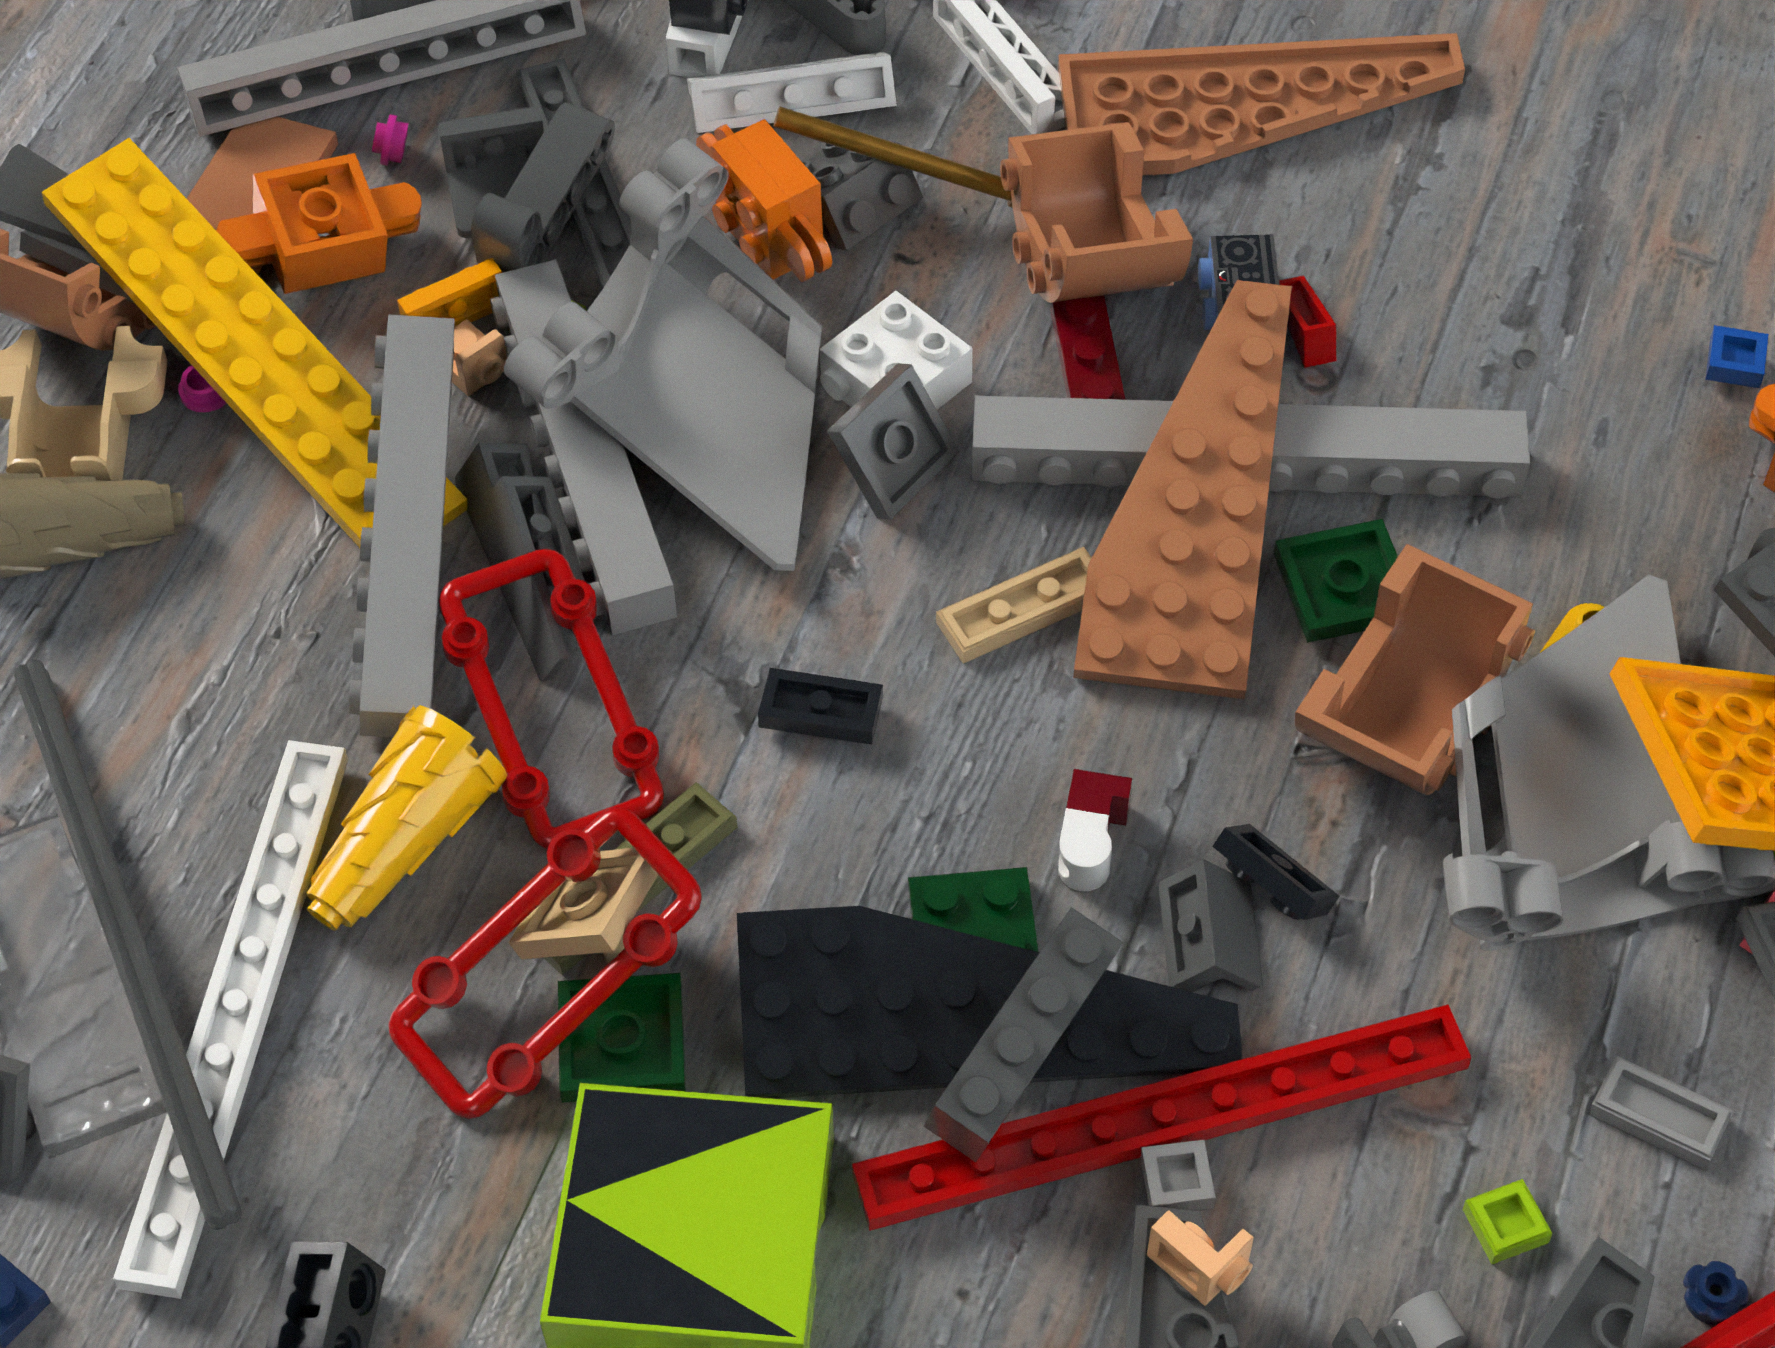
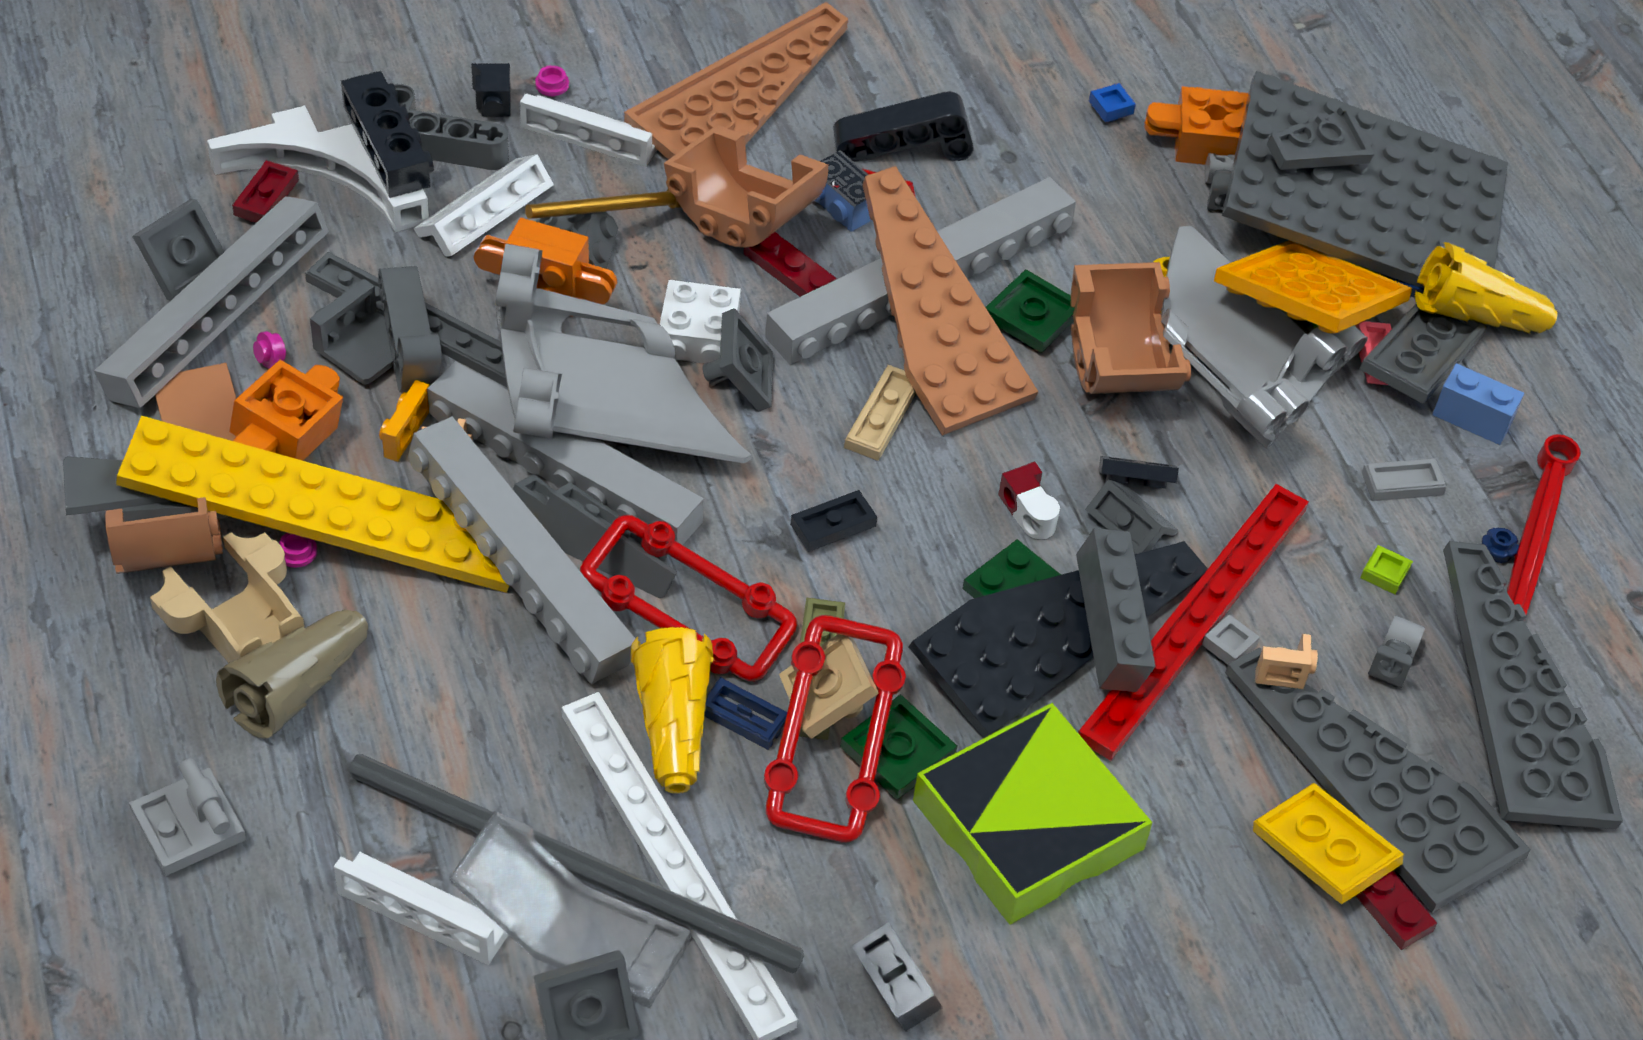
camera: 45 degrees left, 5 degrees down
(477, 836) = (740, 717): none -> dark blue tile
(1403, 247) = (907, 126): none -> black beam

